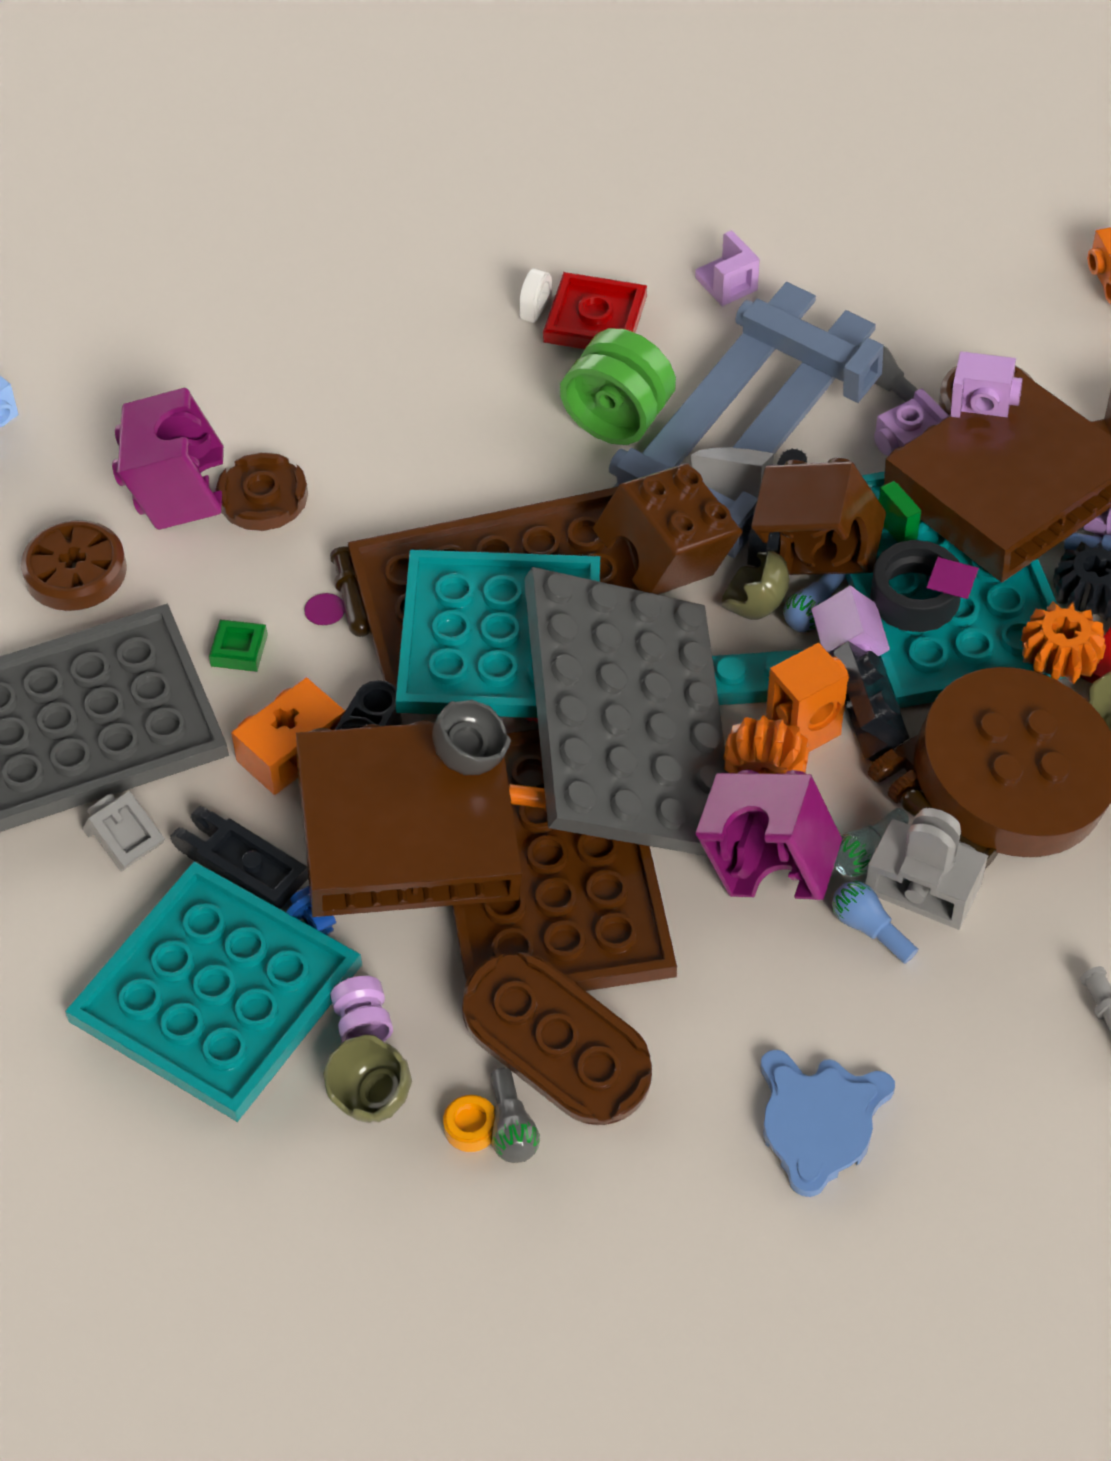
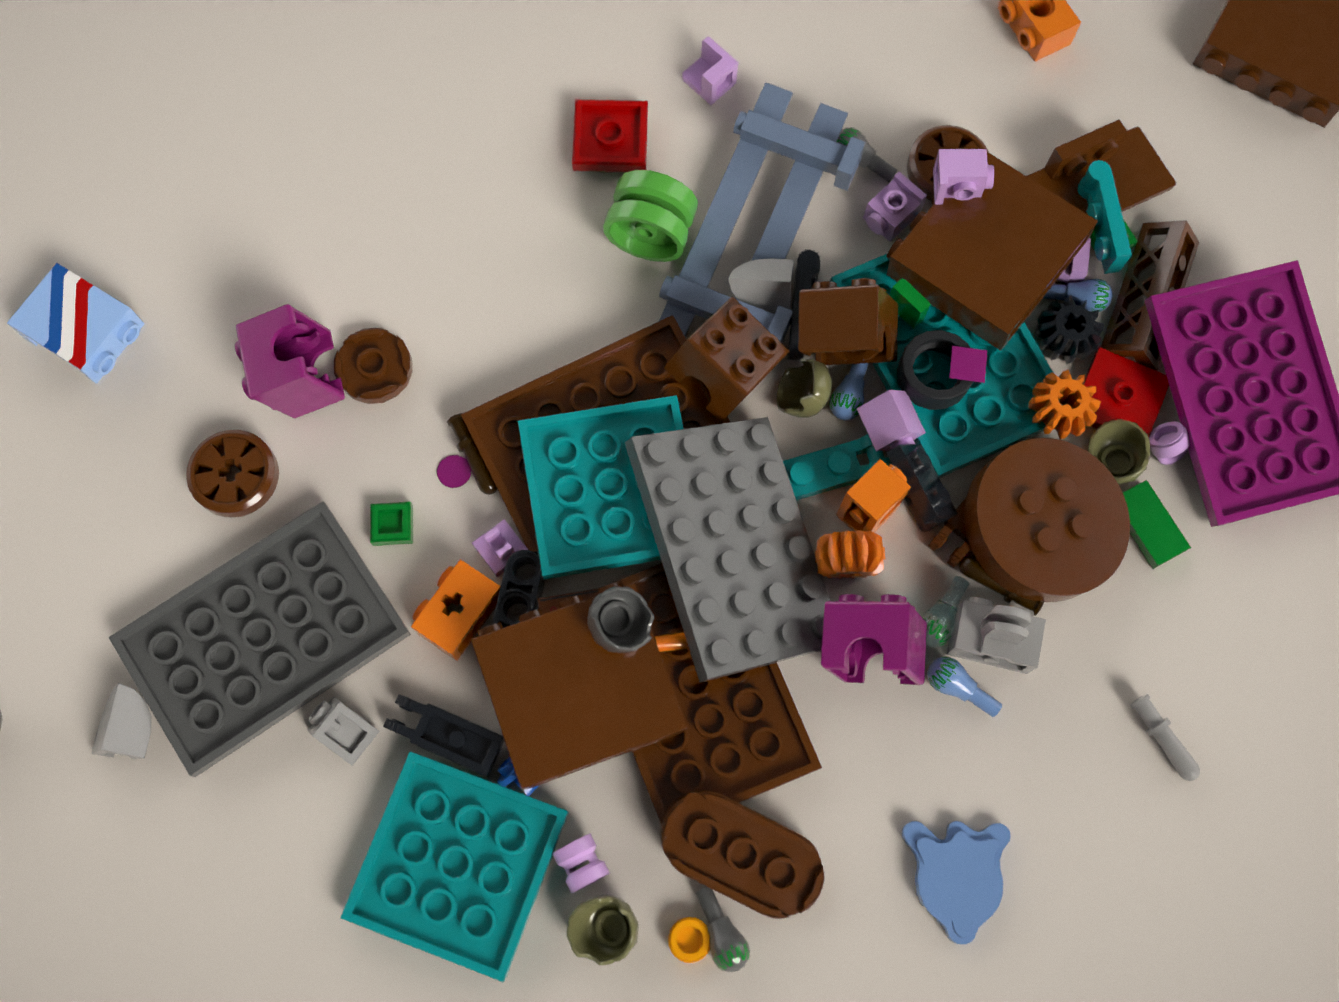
camera: 15 degrees left, 20 degrees up
(347, 681) = (497, 546): none -> lavender tile
(535, 294) = (556, 125): white tile -> none

